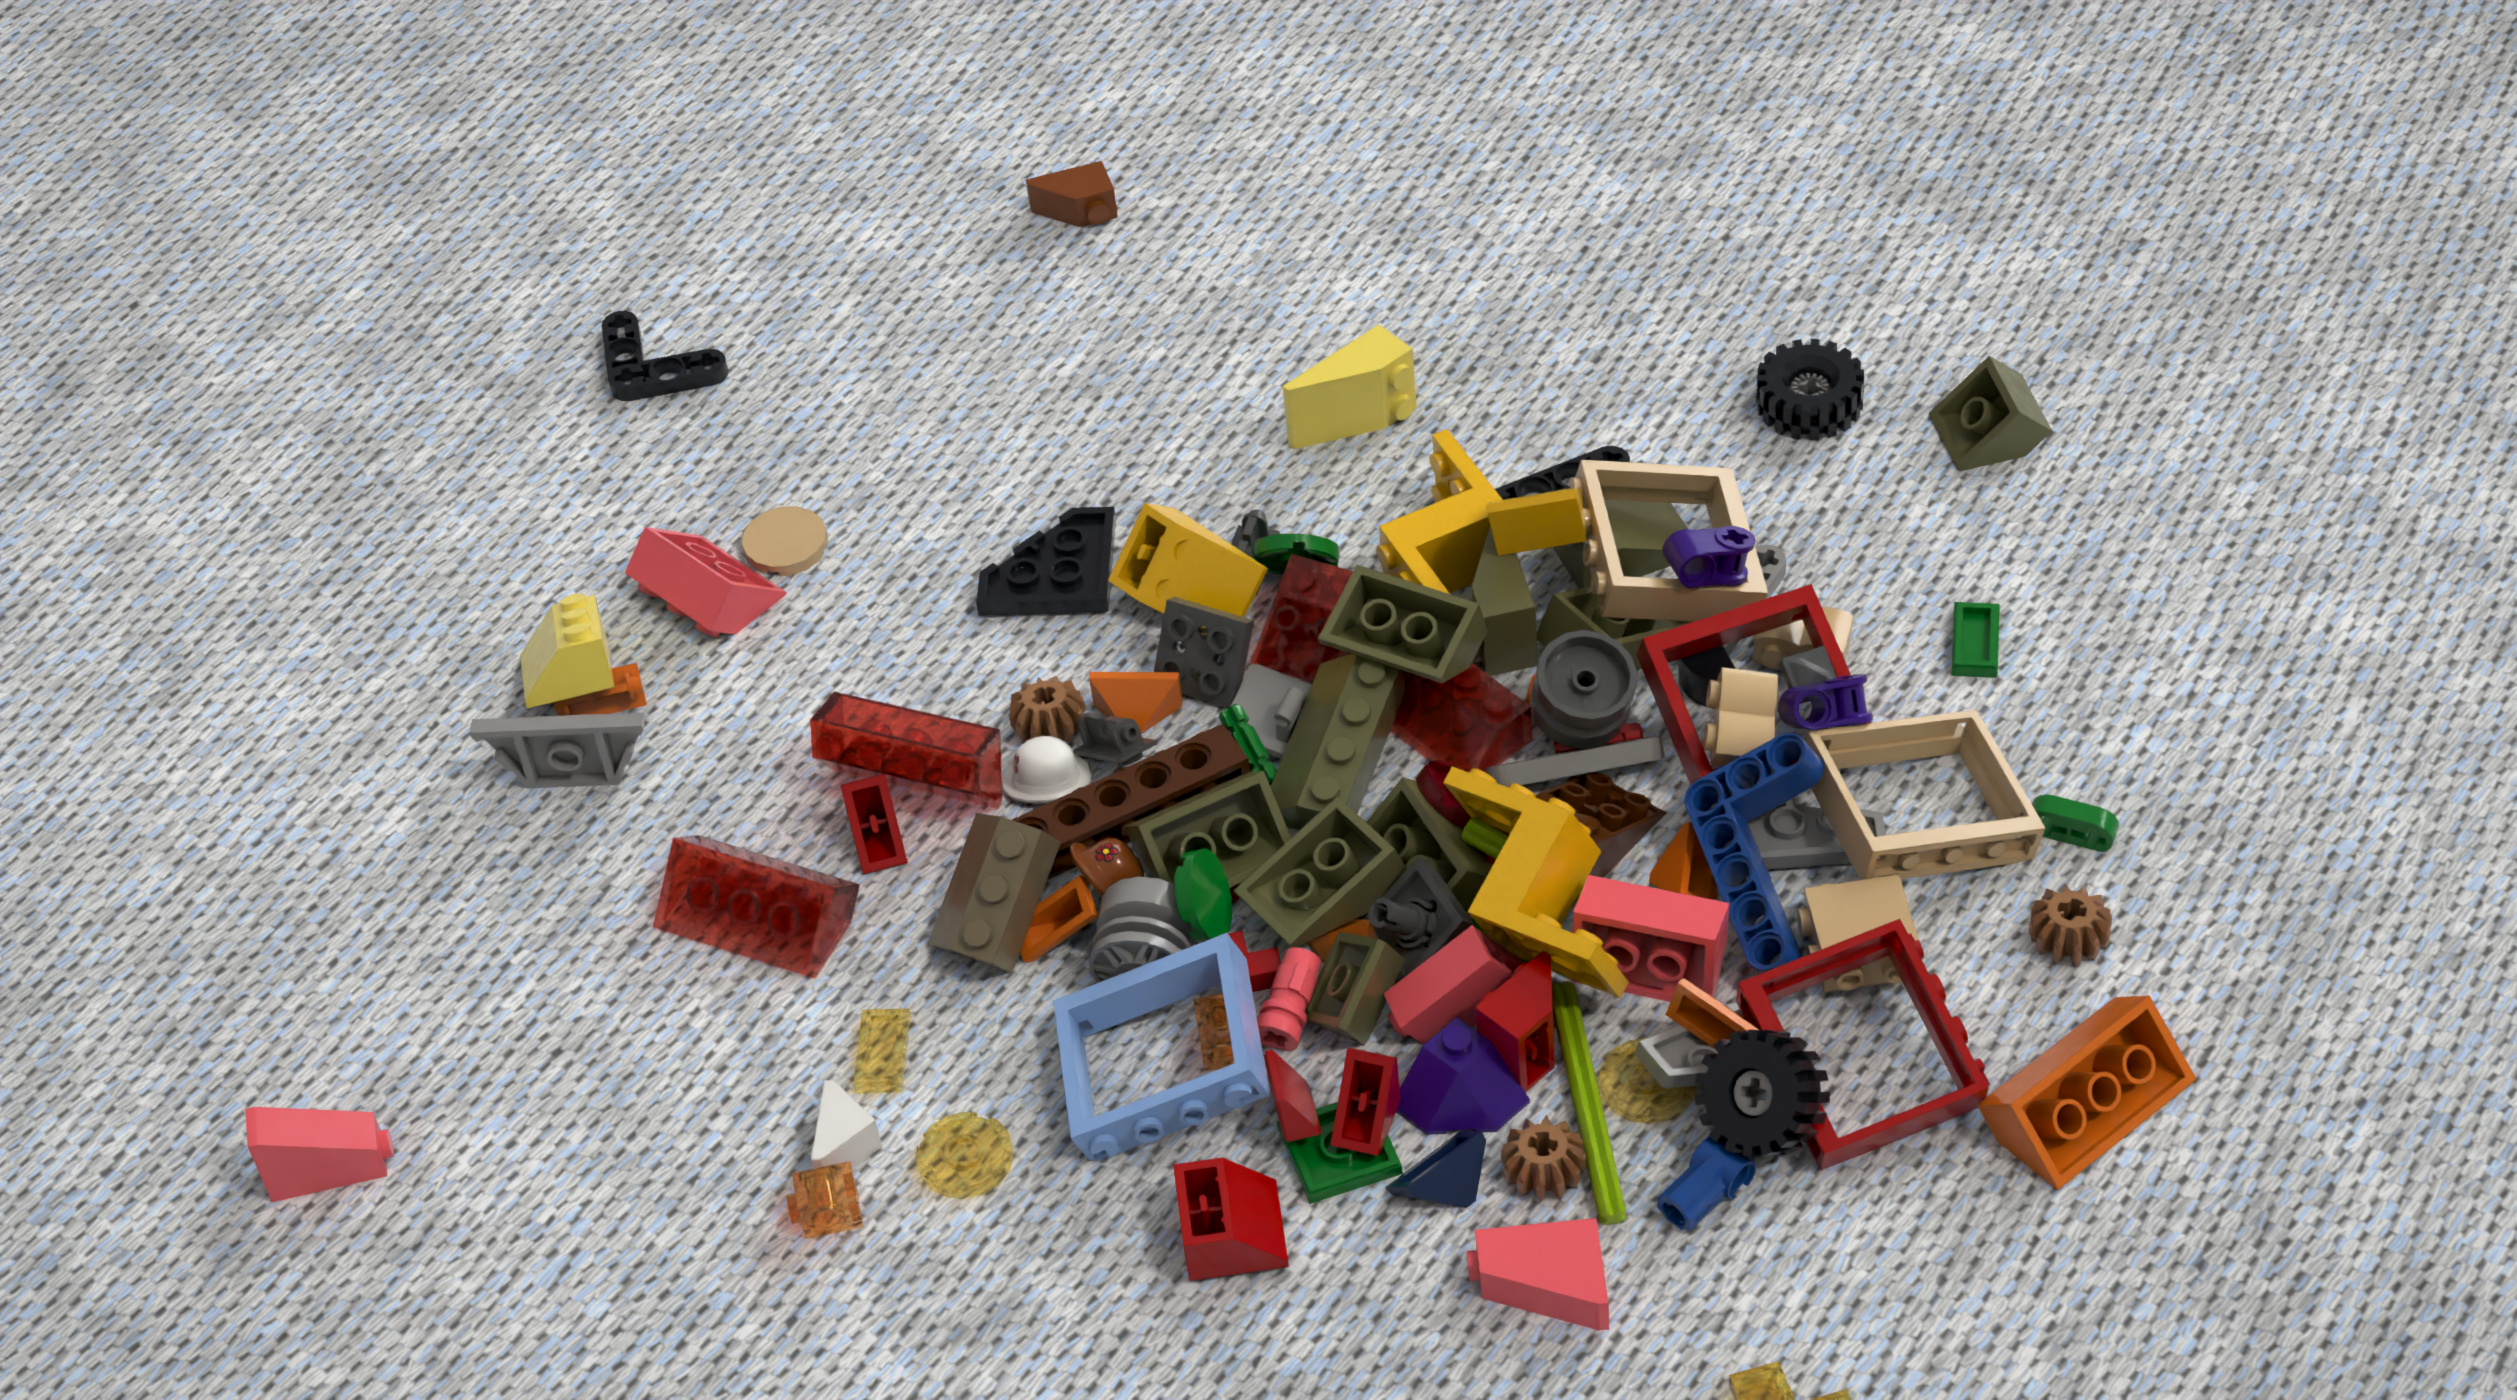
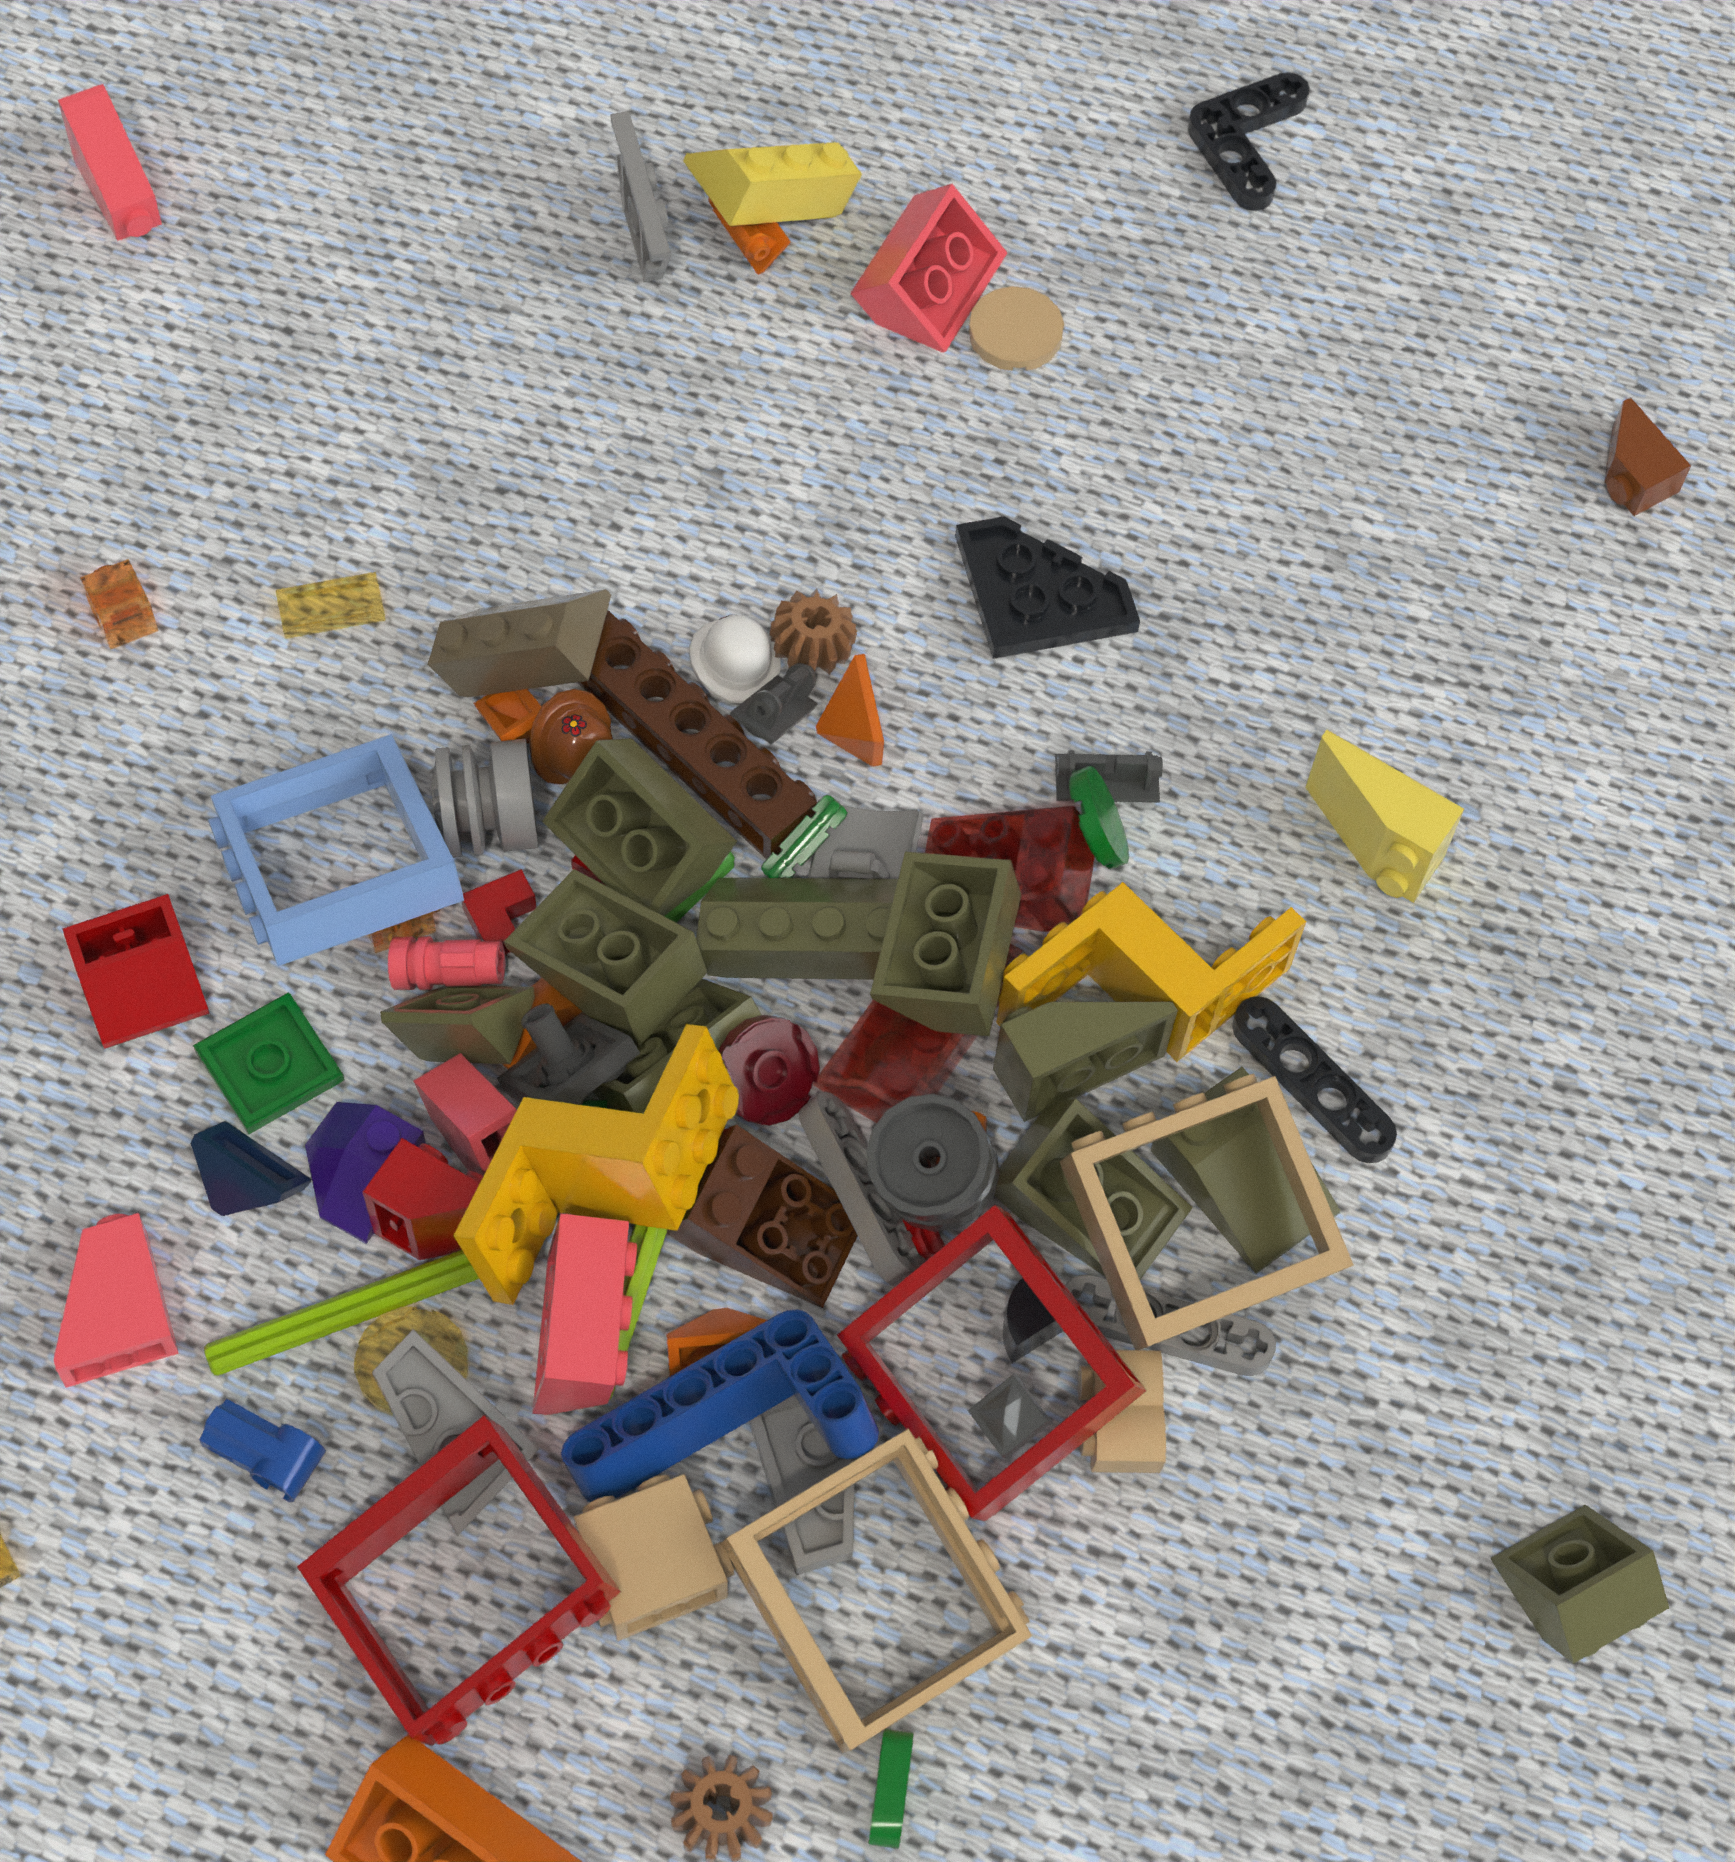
camera: 65 degrees right, 15 degrees up
(754, 904) = (494, 437): clear red slope -> none
(843, 1129) = (205, 592): white slope -> none
(873, 823) = (616, 514): red slope -> none
(909, 748) = (691, 507): clear red slope -> none
(966, 1169) = (206, 729): clear yellow tile -> none
(1184, 560) = (1039, 709): yellow slope -> none
(1203, 895) = (537, 836): green tile -> none
(1217, 652) = (926, 758): dark grey plate -> none
(1291, 1099) = (305, 993): red slope -> none
(1366, 1101) = (298, 1069): red slope -> none
(1537, 521) = (1161, 1041): yellow slope -> none
(1543, 1158) = (288, 1276): medium nougat gear -> none
(1704, 1014) = (463, 1405): orange slope -> none
(1707, 556) = (1149, 1250): dark purple piece -> none
(1742, 713) = (913, 1349): tan brick -> none
(1792, 1089) = (344, 1475): black bush -> none
(1806, 369) = (1589, 1323): black bush -> none
(1834, 703) = (959, 1444): dark purple piece -> none
(1975, 639) = (1189, 1624): green tile -> none

